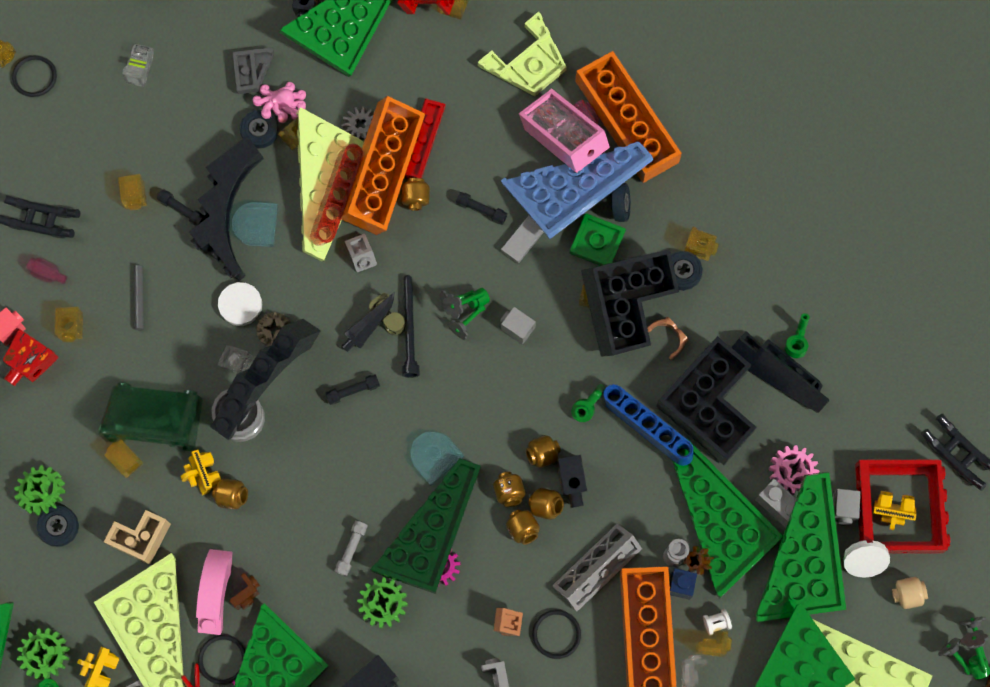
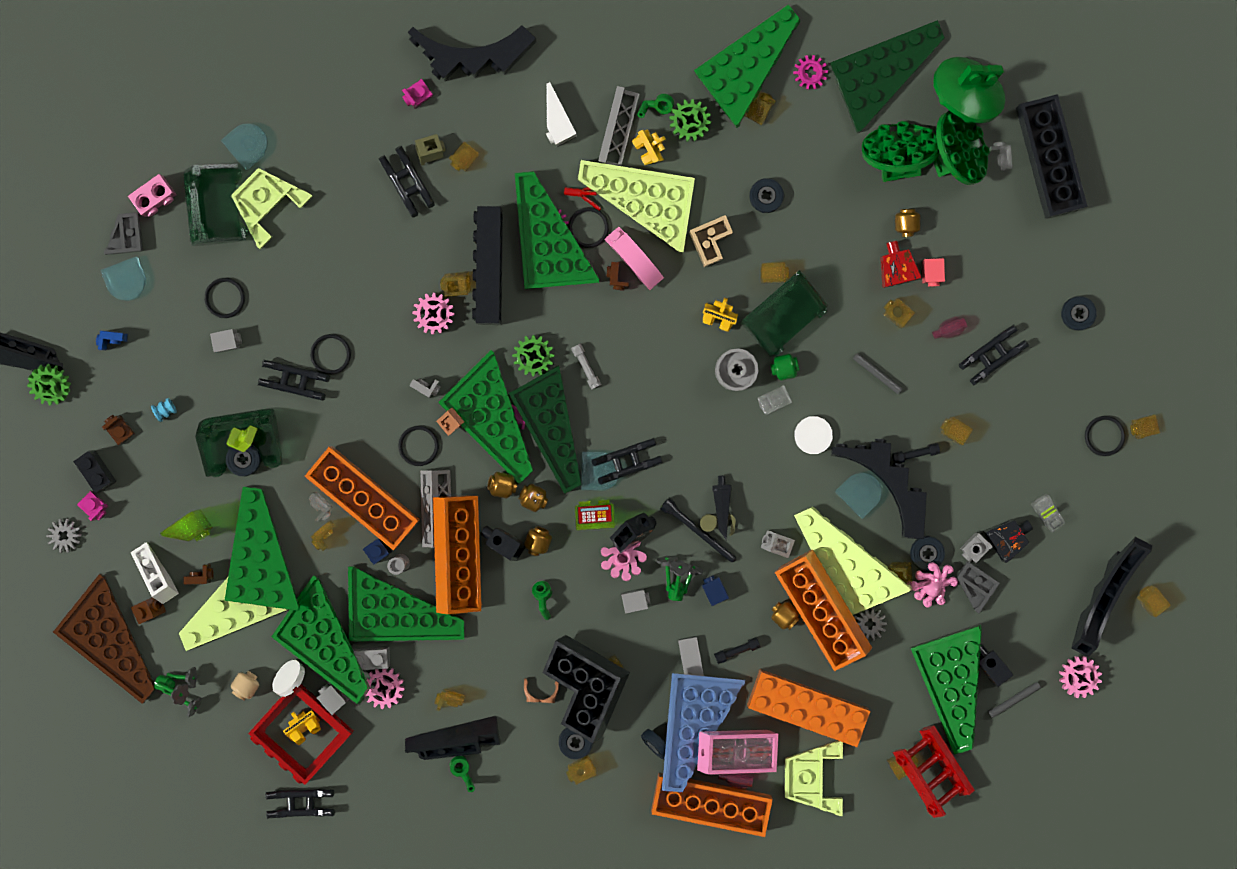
camera: 135 degrees right, 15 degrees up
(49, 483) = (800, 196): bright green gear -> none
(188, 76) = (1008, 538): none -> black torso
(199, 376) = (785, 367): none -> green head
(221, 101) = (975, 540): none -> light grey brick
(230, 494) = (688, 320): pearl gold head -> none
(266, 322) = (775, 451): dark tan gear -> none
(268, 364) = (744, 407): black arch -> none
(335, 395) = (683, 472): black bar -> none
(344, 188) = (829, 552): clear red beam -> none
(398, 426) = (637, 465): none -> black piece
(426, 137) = (834, 679): red tile -> none
(447, 268) = (714, 590): none -> dark blue brick
(450, 372) = (639, 526): none -> black torso
(474, 589) = (489, 416): none -> green wing
(475, 111) = (808, 708): none -> orange brick
(475, 421) = (594, 515): none -> slope
(490, 366) = (622, 561): none -> bright pink animal
(546, 503) = (502, 512): pearl gold head -> none
(597, 240) = (645, 705): green plate -> none
(619, 508) = (457, 554): none -> orange brick
(651, 434) = (484, 619): blue beam -> none
(699, 403) = (481, 669): black brick -> none
(704, 559) = (378, 577): reddish brown gear -> none
(709, 620) = (335, 556): white bush -> none
(746, 405) = (452, 698): none -> clear yellow bracket

